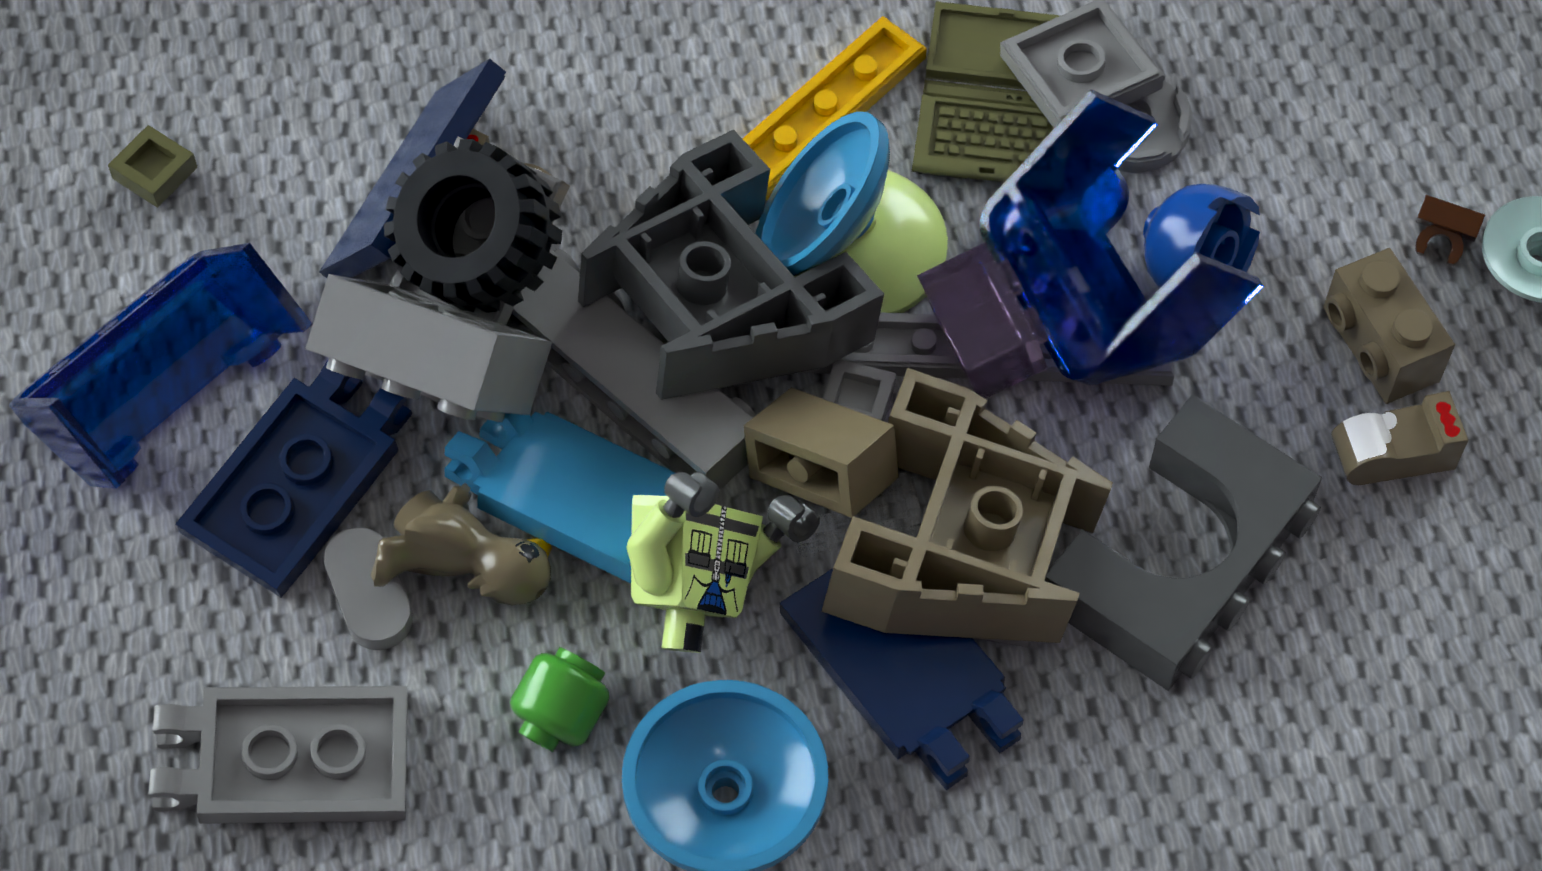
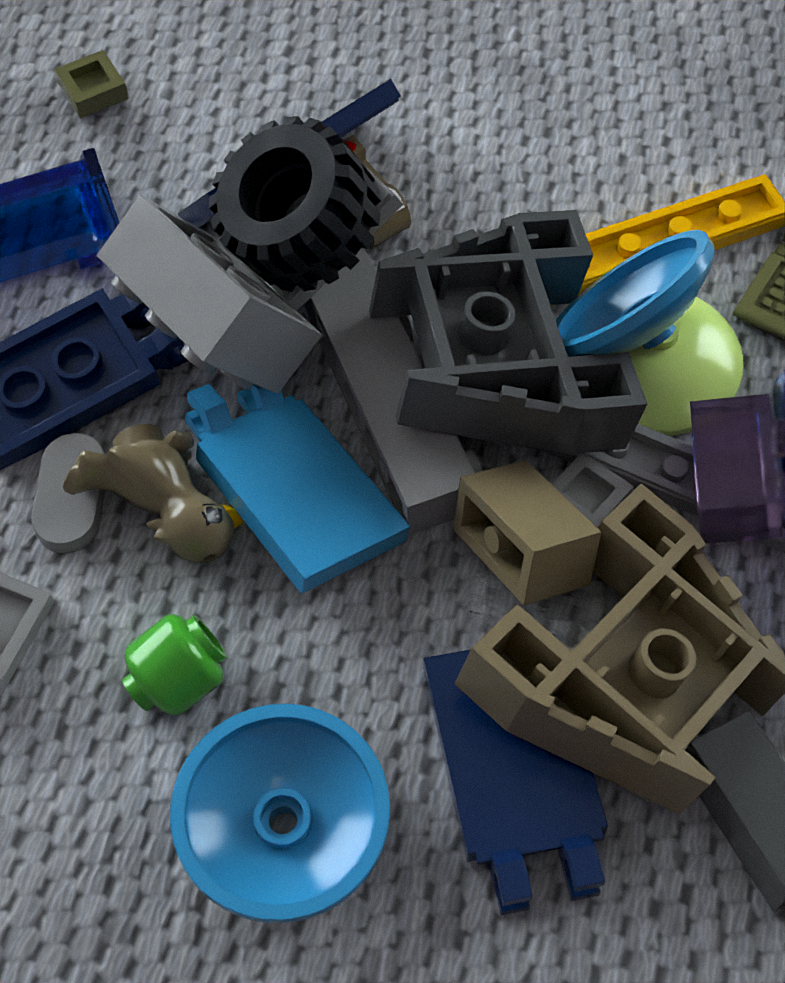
camera: 25 degrees right, 0 degrees up
(701, 554) = (364, 584): yellowish green torso -> none

